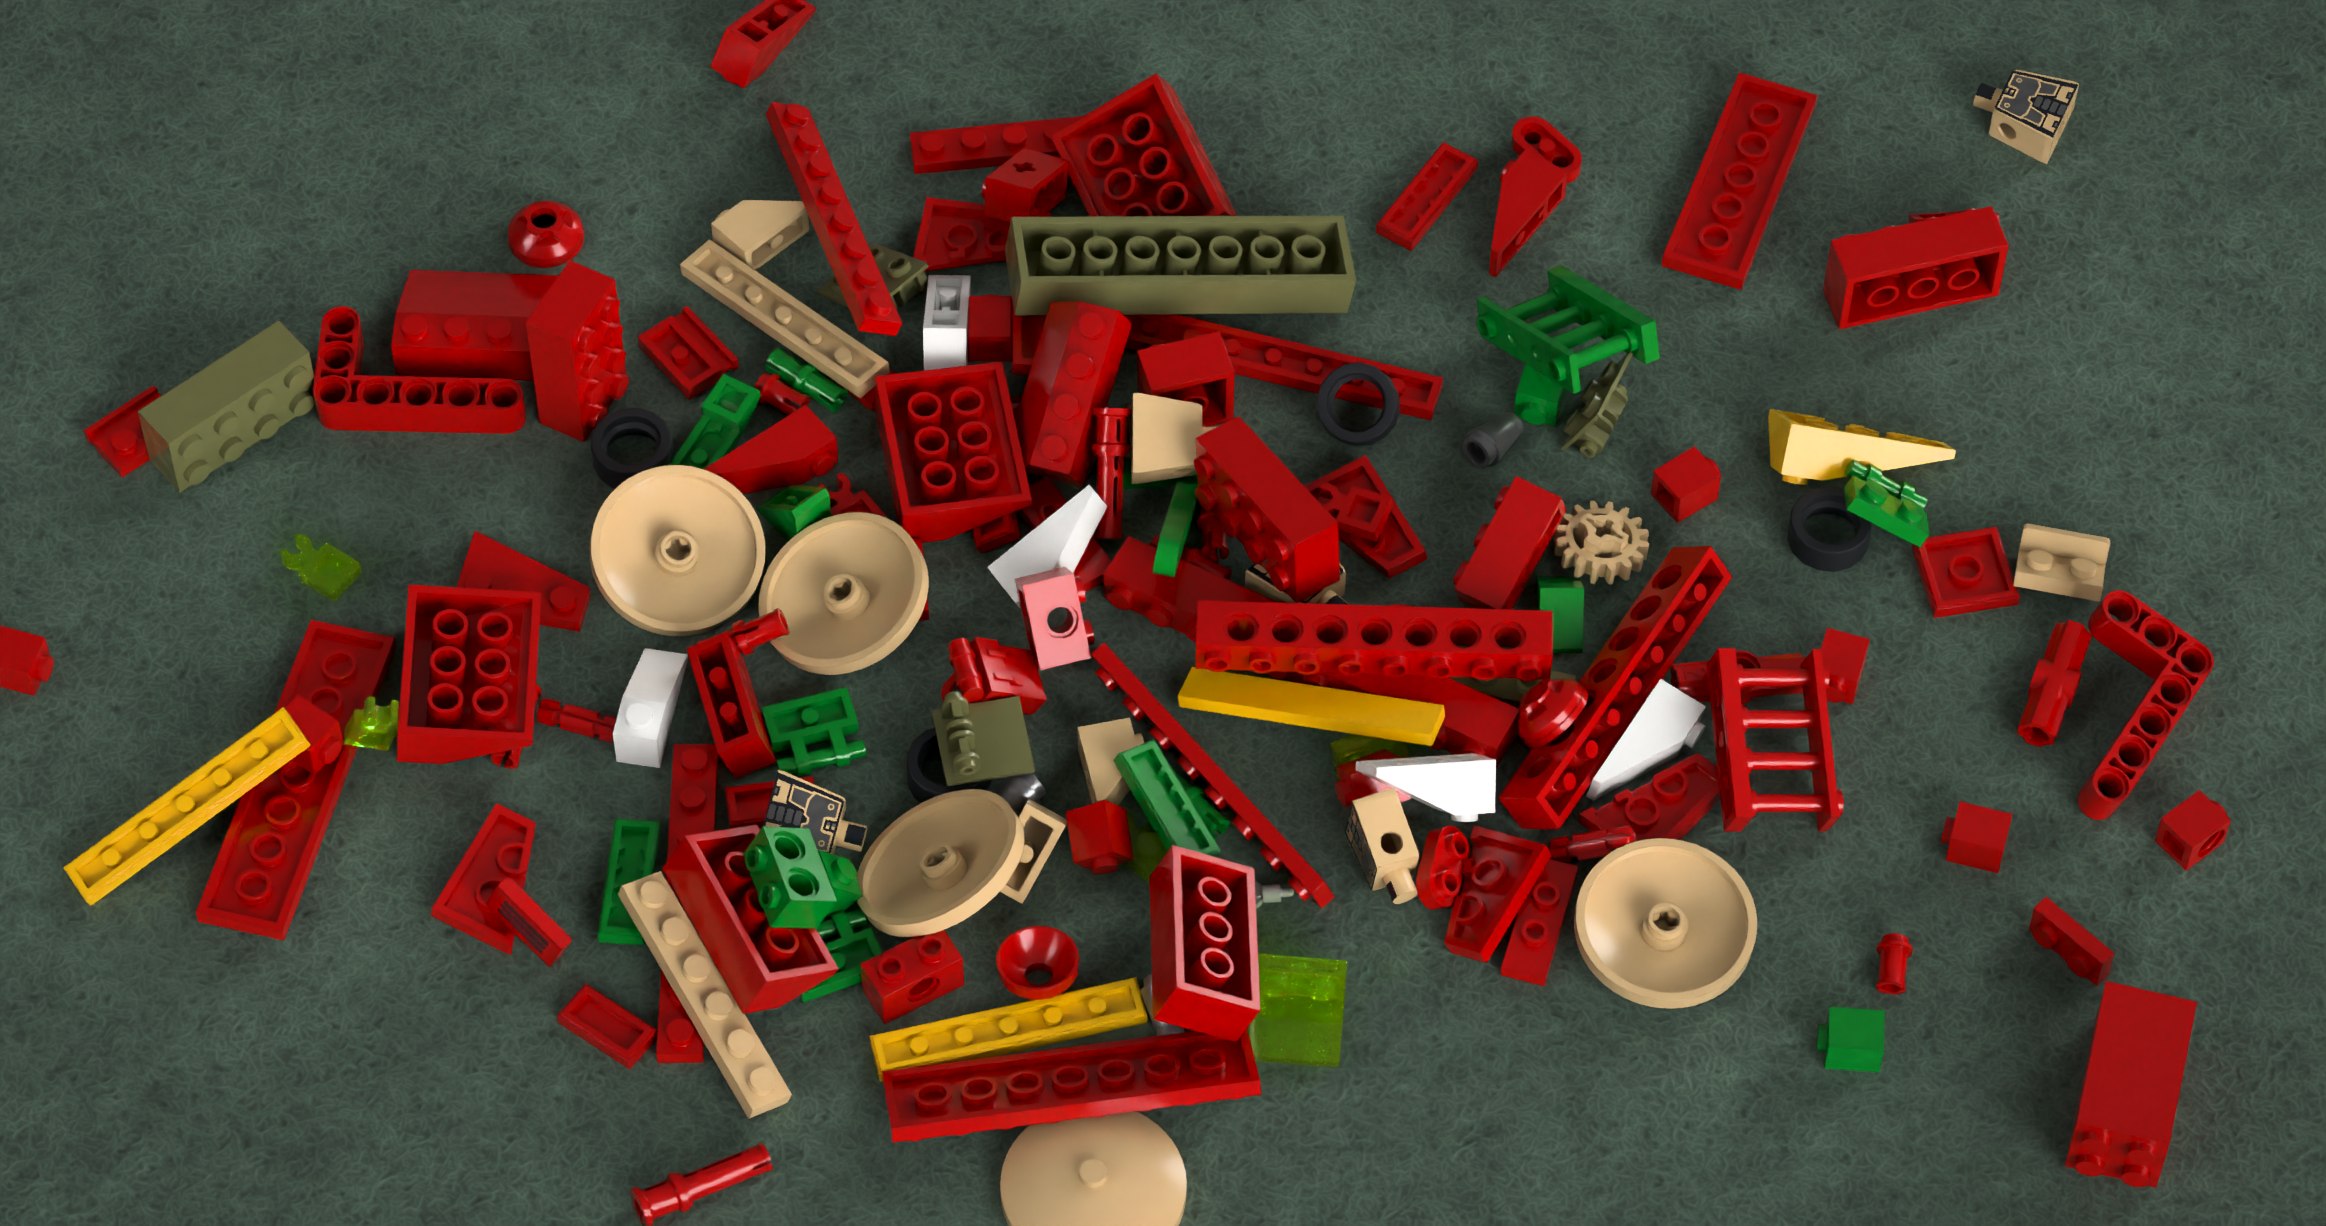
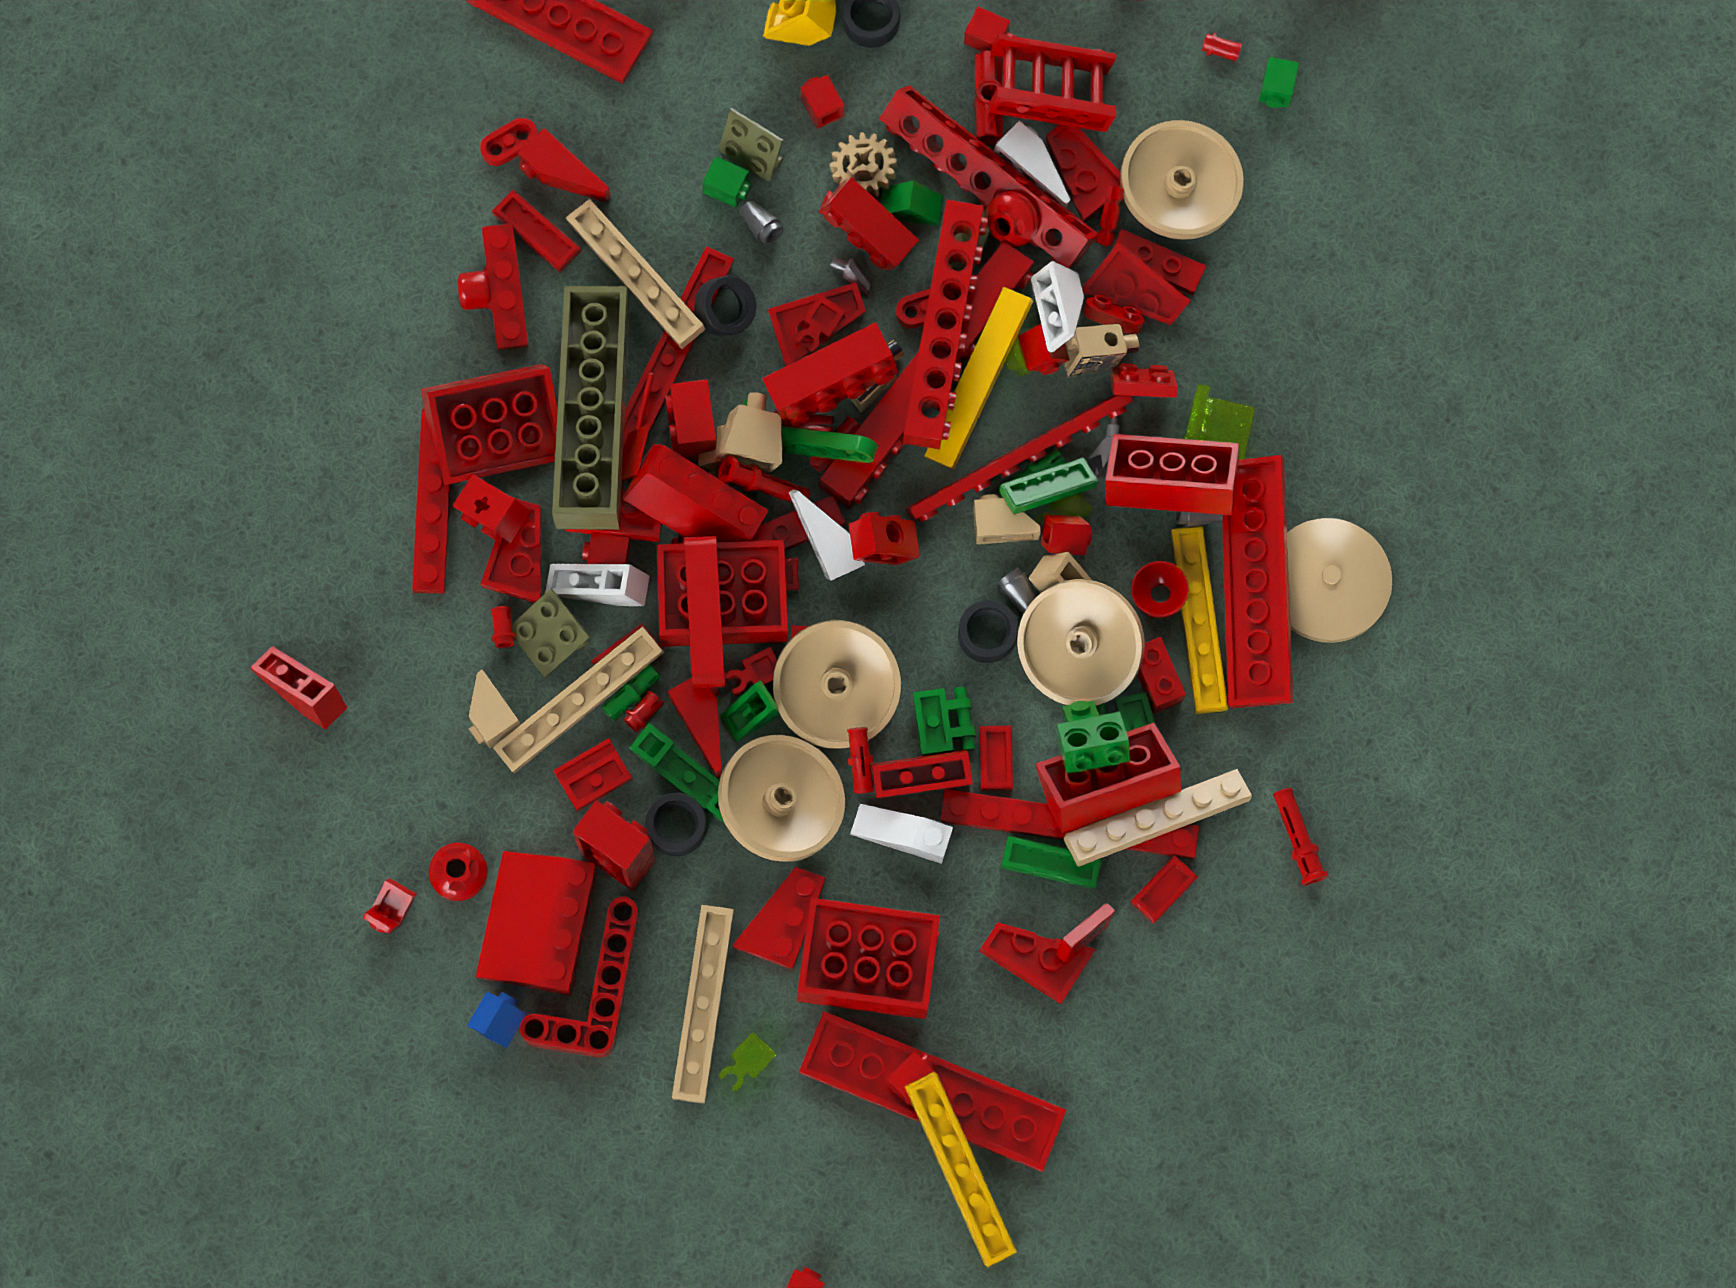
camera: 85 degrees left, 20 degrees up
(120, 434) = (596, 1194): red plate -> none
(228, 406) = (601, 1117): olive brick -> none
(352, 286) = (497, 1018): none -> blue brick
(373, 725) = (910, 1028): clear neon green plate -> none
(394, 509) = (702, 1004): none -> tan plate
(485, 166) = (390, 907): none -> red bracket
(576, 719) = (908, 883): red axle -> none
(806, 805) = (1027, 732): torso -> none
(833, 219) = (498, 651): red plate -> none
(881, 231) = (502, 627): none -> red pin
(909, 411) = (704, 612): none -> red beam
(982, 739) = (982, 601): olive hinge -> none
(994, 672) = (923, 590): red piece -> none
(1150, 318) = (636, 439): none -> red piece
(1336, 162) = (497, 287): none -> red plate
(1343, 903) = (1154, 382): none -> red plate
(1383, 302) = (635, 273): none -> tan plate
(1442, 555) = (852, 273): none -> flat silver bar
(1576, 302) = (672, 135): green fence -> none

